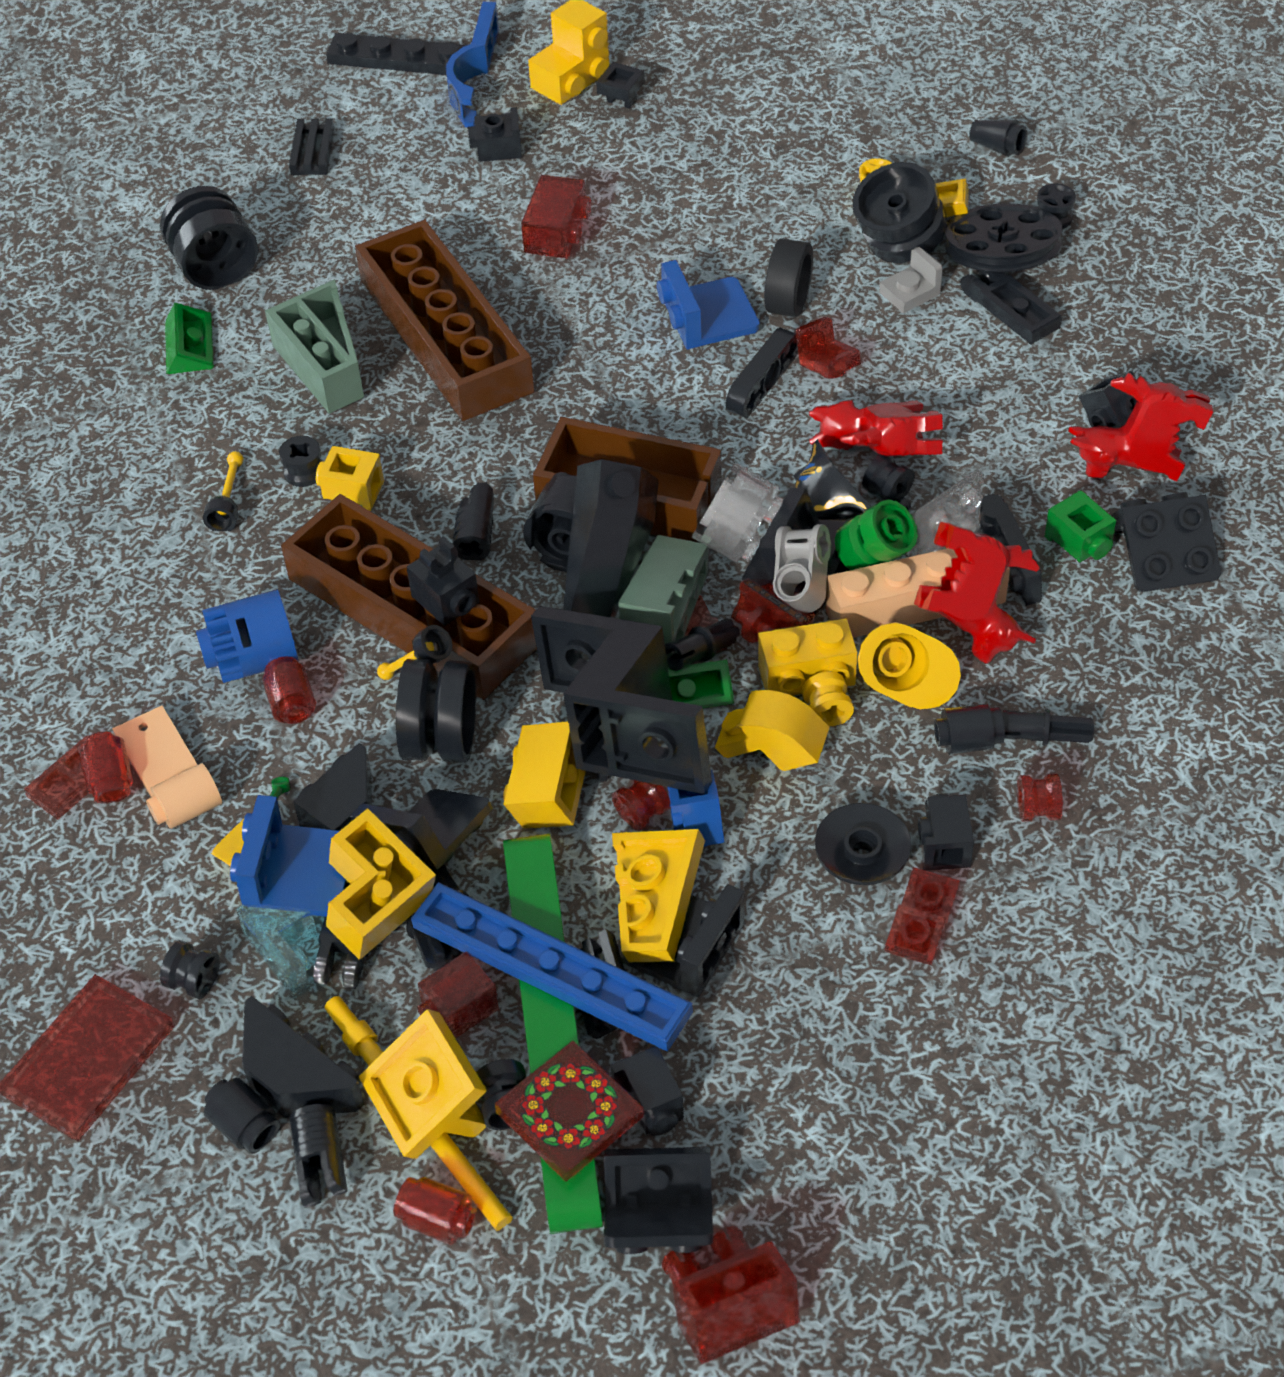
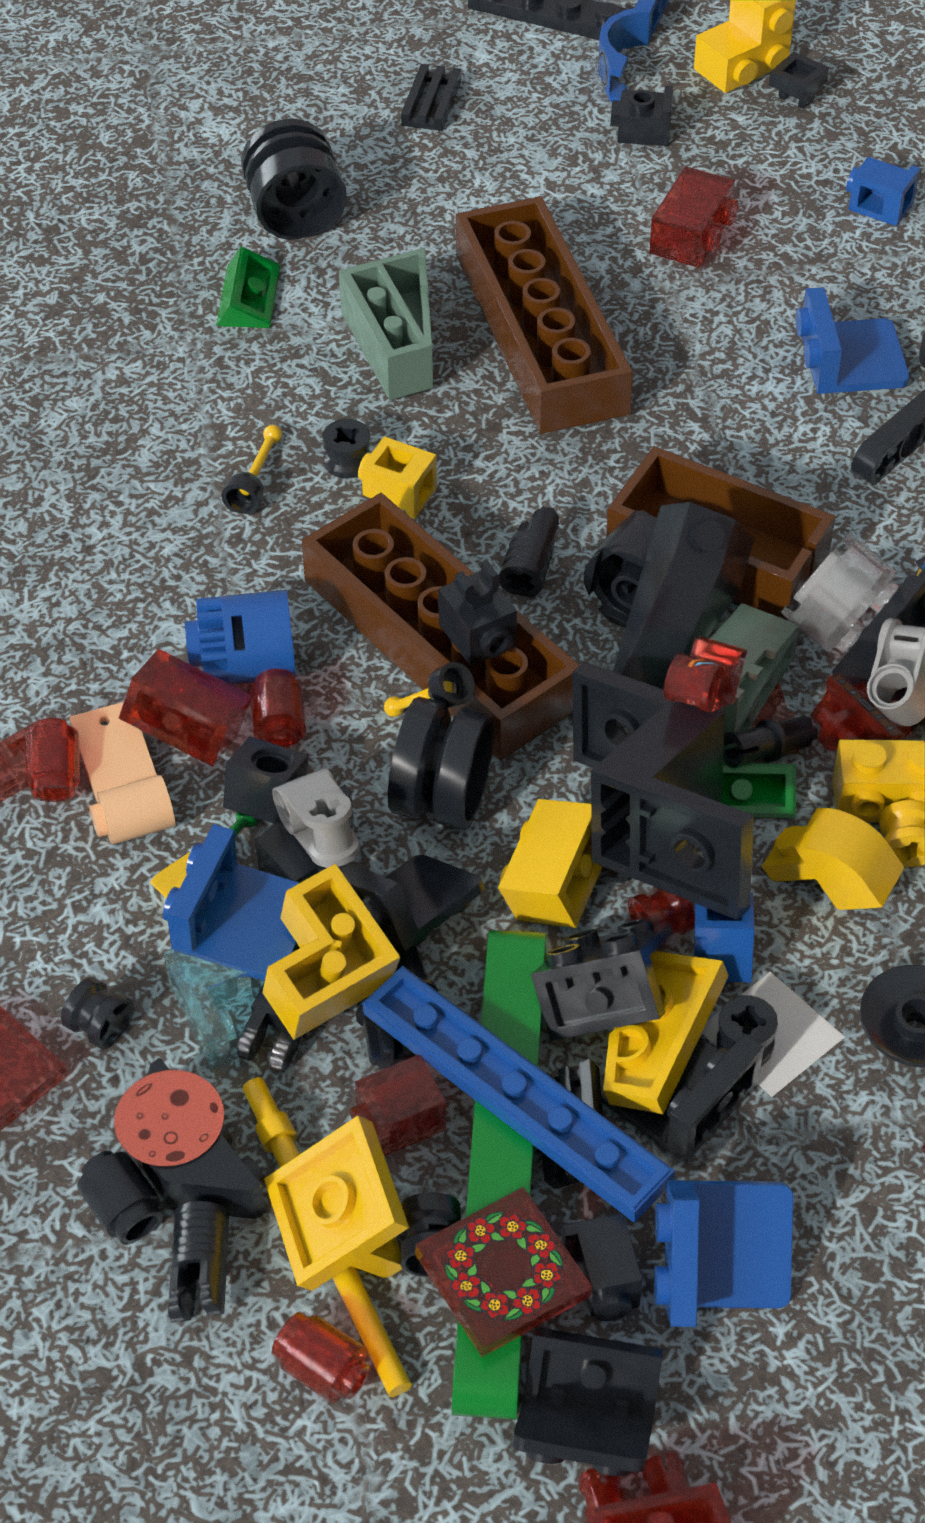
camera: 10 degrees right, 0 degrees up
(210, 702) = (185, 707): none -> clear red brick
(269, 1042) = (169, 1118): none -> clear red sticker
(292, 752) = (255, 772): none -> black brick
(343, 773) = (318, 817): none -> light grey piece
(603, 863) = (601, 980): none -> black bracket
(642, 599) = (706, 676): none -> clear red leg
(708, 168) = (882, 190): none -> blue brick
(727, 867) = (750, 1013): none -> black wheel
(742, 1056) = (723, 1247): none -> blue bracket
(756, 871) = (799, 1038): none -> white sticker

